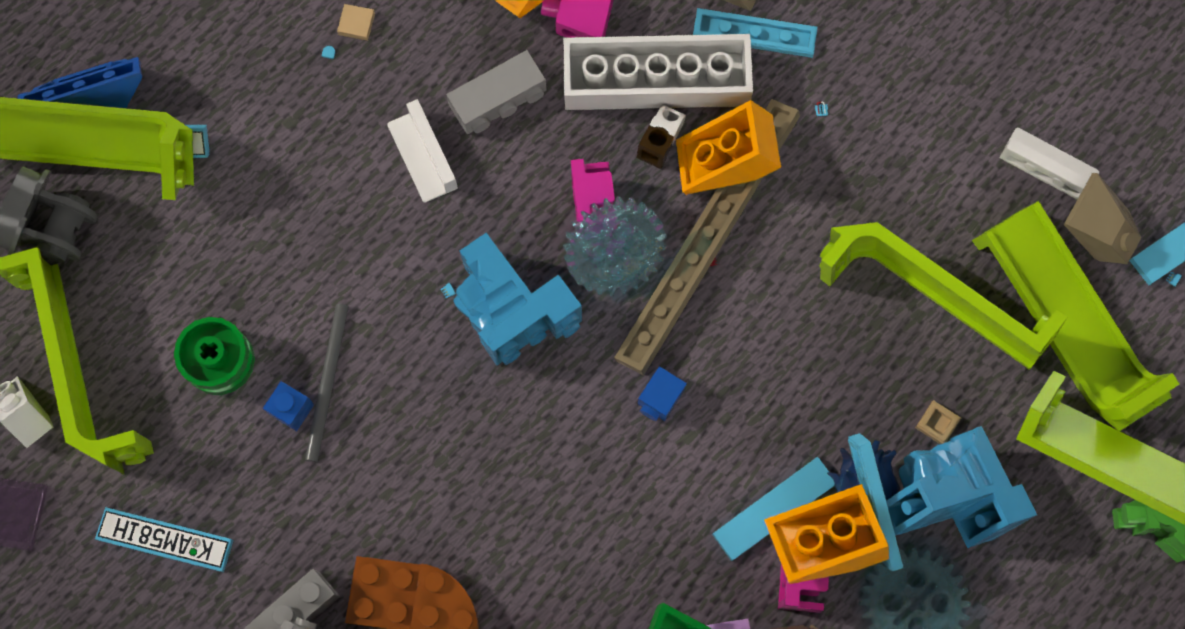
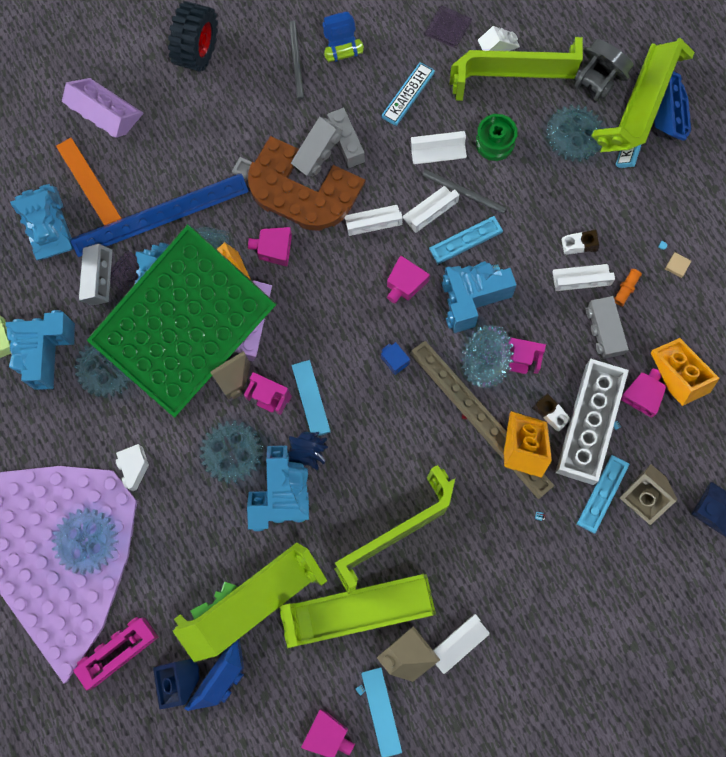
camera: 115 degrees right, 0 degrees up
(190, 246) = (574, 133): none -> clear light blue gear
(260, 450) = (438, 147): none -> white panel
(288, 406) = (456, 166): blue brick -> none
(365, 169) = (581, 242): none -> leg
(376, 427) = (431, 208): none -> white panel
(415, 351) = (466, 239): none -> medium azure tile
(418, 83) = (627, 287): none -> orange pin
(426, 517) = (373, 220): none -> white panel
(521, 423) = (406, 280): none -> dark pink torso
(828, 536) = (278, 405): light orange slope -> none
(869, 478) = (288, 439): medium azure tile -> none
(938, 422) = (325, 507): tan tile -> none

